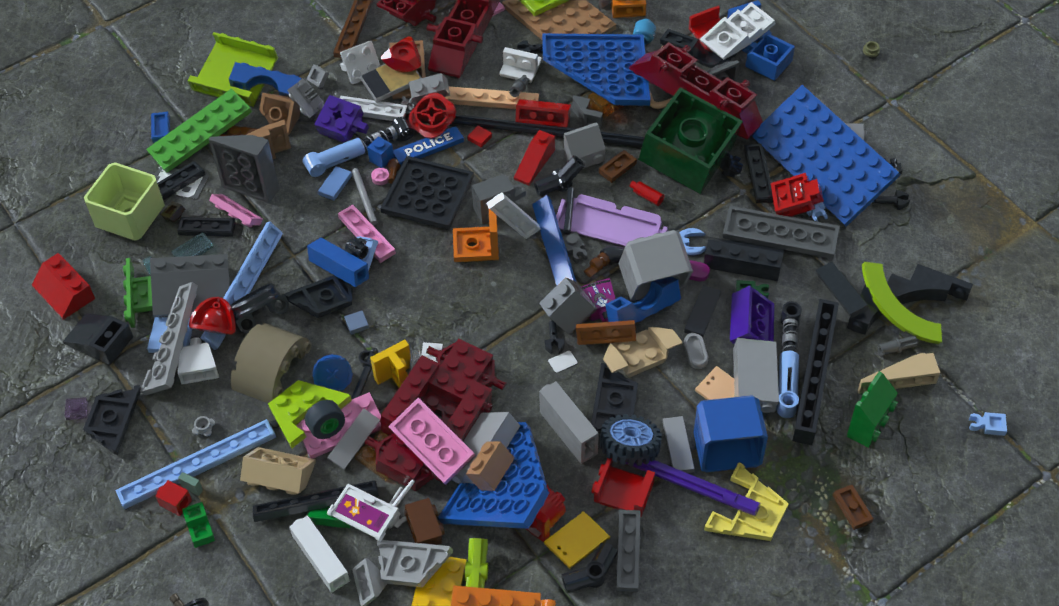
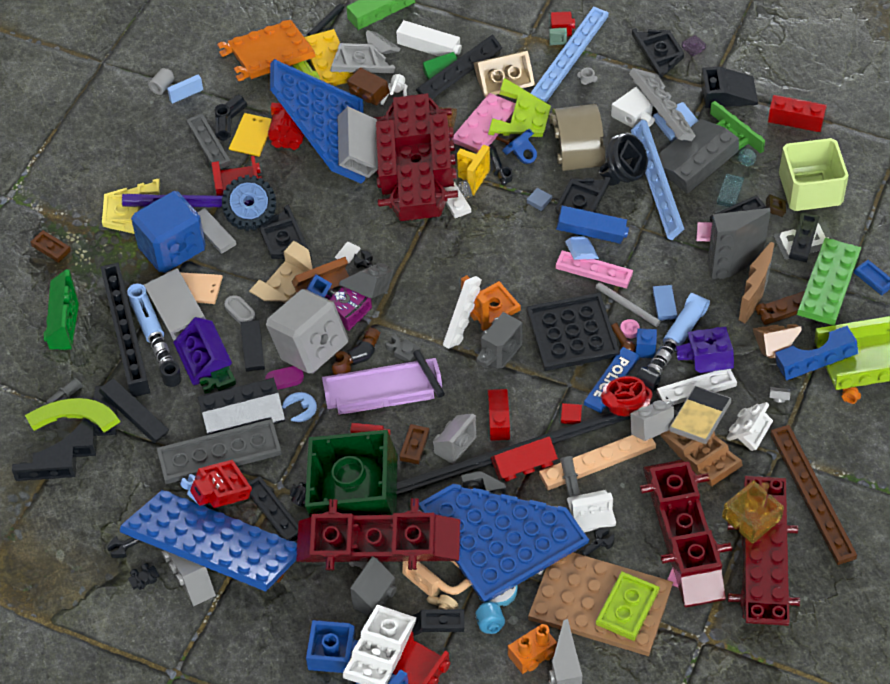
camera: 150 degrees right, 0 degrees up
(198, 524) = (530, 23): green slope -> none
(213, 316) = (645, 126): red hat -> none
(298, 95) = (759, 345): light grey hinge -> none
(324, 419) = (490, 101): black wheel -> none
(353, 439) = (464, 113): light grey tile -> none
(357, 247) = (582, 236): black gear -> none
(357, 510) = (414, 67): door -> none
(403, 56) = (702, 429): red hat -> none
(432, 441) = (393, 111): bright pink plate -> none
(490, 465) = (336, 114): medium nougat brick -> none
(553, 240) = (422, 340): blue tile -> none
(560, 178) = (460, 400): black piece -> none
(568, 422) = (306, 192): light grey brick -> none
(911, 372) = (44, 370): tan slope -> none

